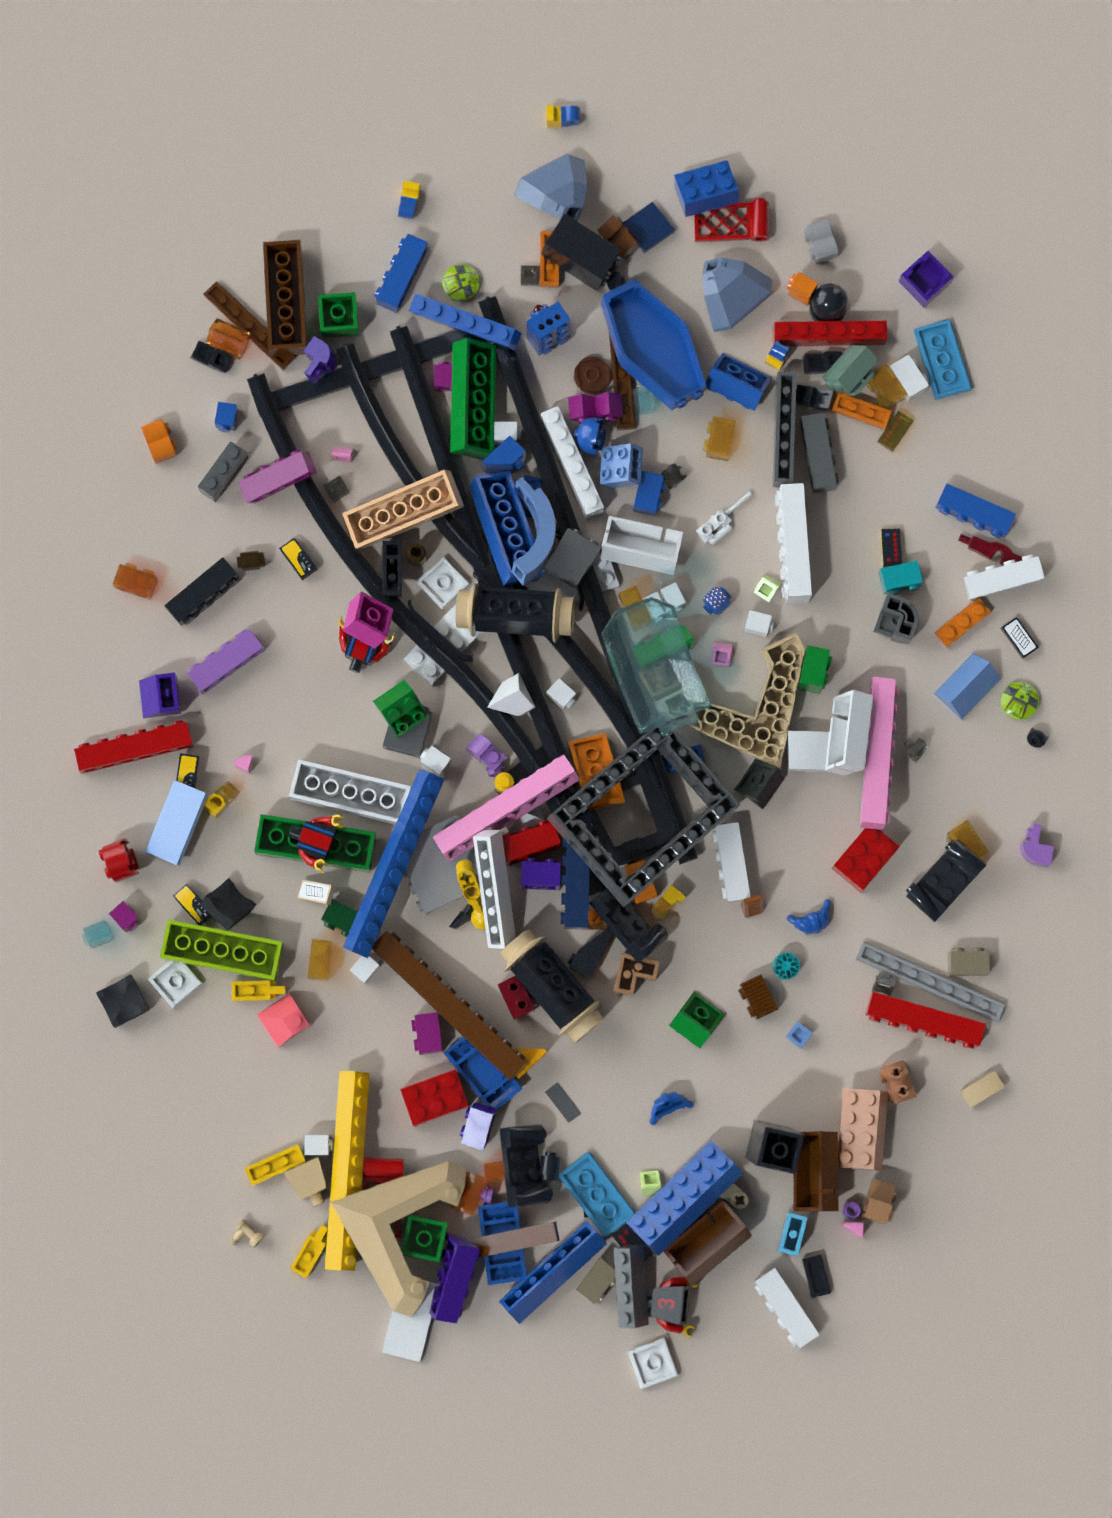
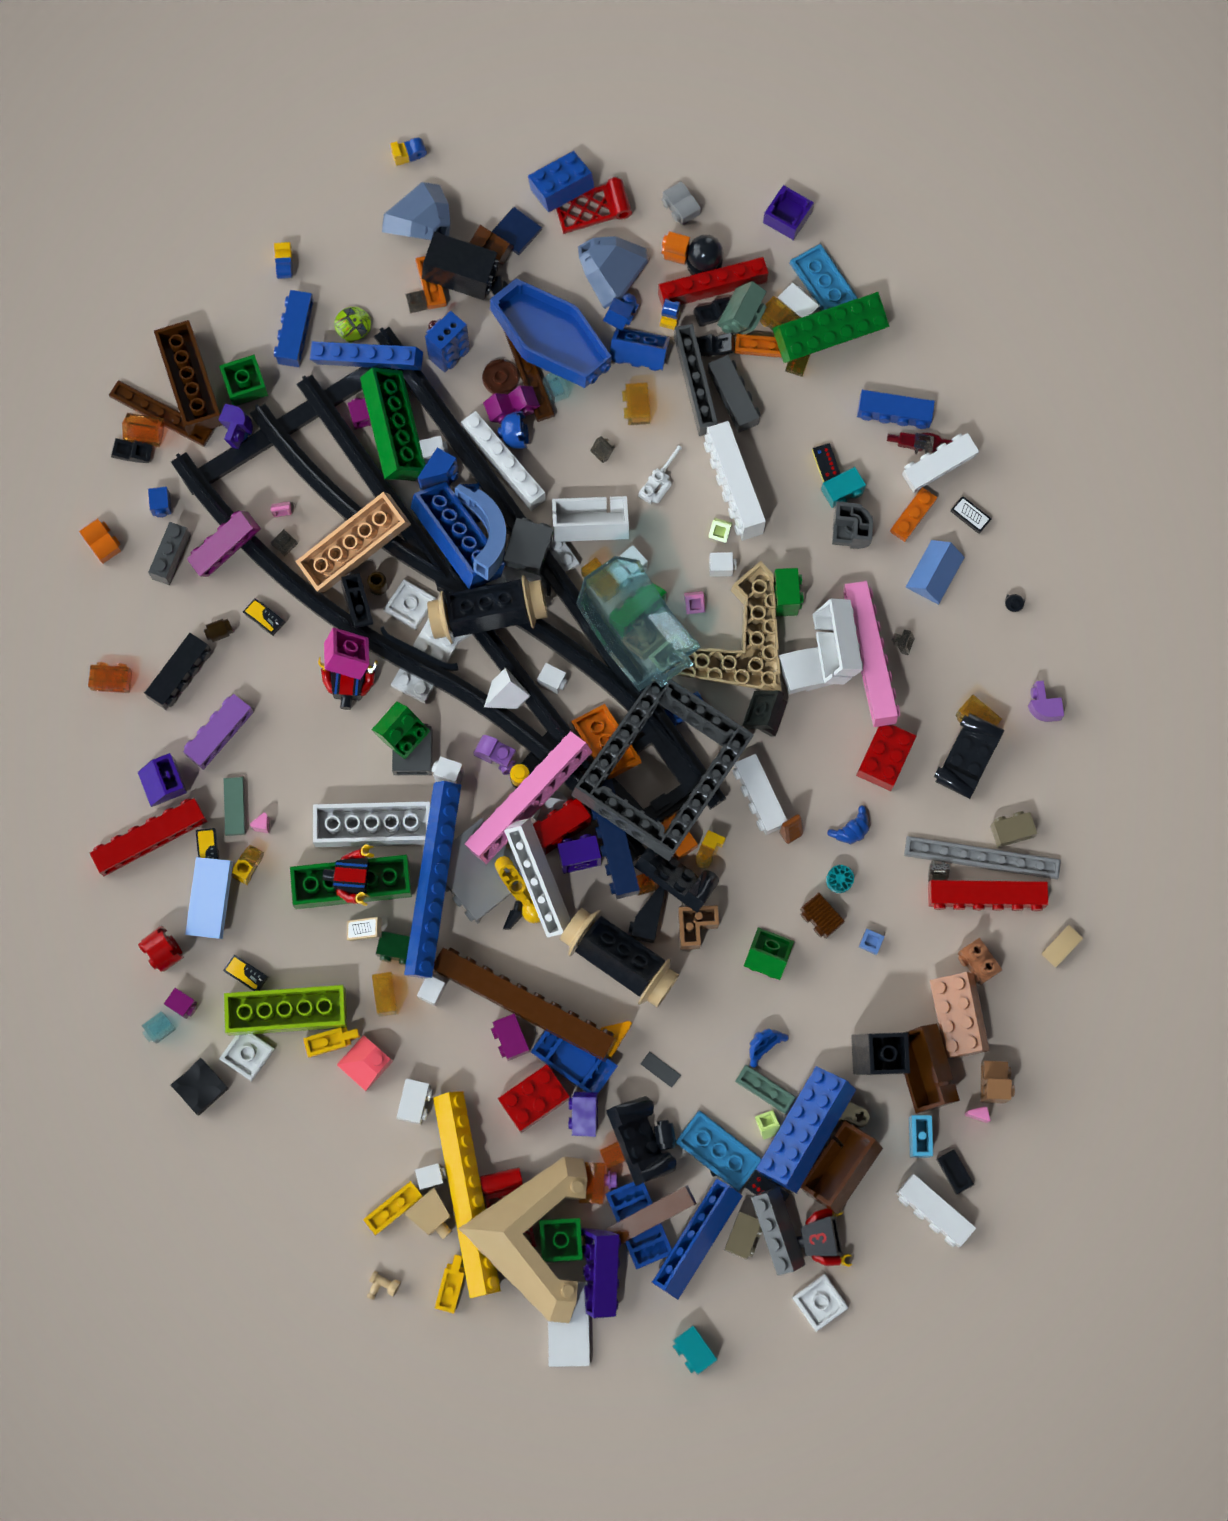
camera: 15 degrees left, 5 degrees down
(223, 739) = (234, 806): none -> sand green tile
(227, 905) = (279, 964): black brick -> none
(320, 1070) = (414, 1101): none -> white brick
(514, 998) = (585, 979): dark red brick -> none
(522, 1375) = (694, 1350): none -> teal brick
(621, 466) = (551, 450): medium blue brick -> none
(648, 493) = (584, 470): blue brick -> none
(657, 1148) = (765, 1089): none -> sand green tile
(716, 601) = (676, 553): blue head -> none
(728, 339) = (620, 311): none -> blue brick
(852, 1215) = (971, 1092): medium lavender plate -> none
(933, 411) = (830, 327): none -> green brick
(993, 553) = (923, 442): none -> clear smoke tile
(1019, 700) = (988, 572): lime dish -> none

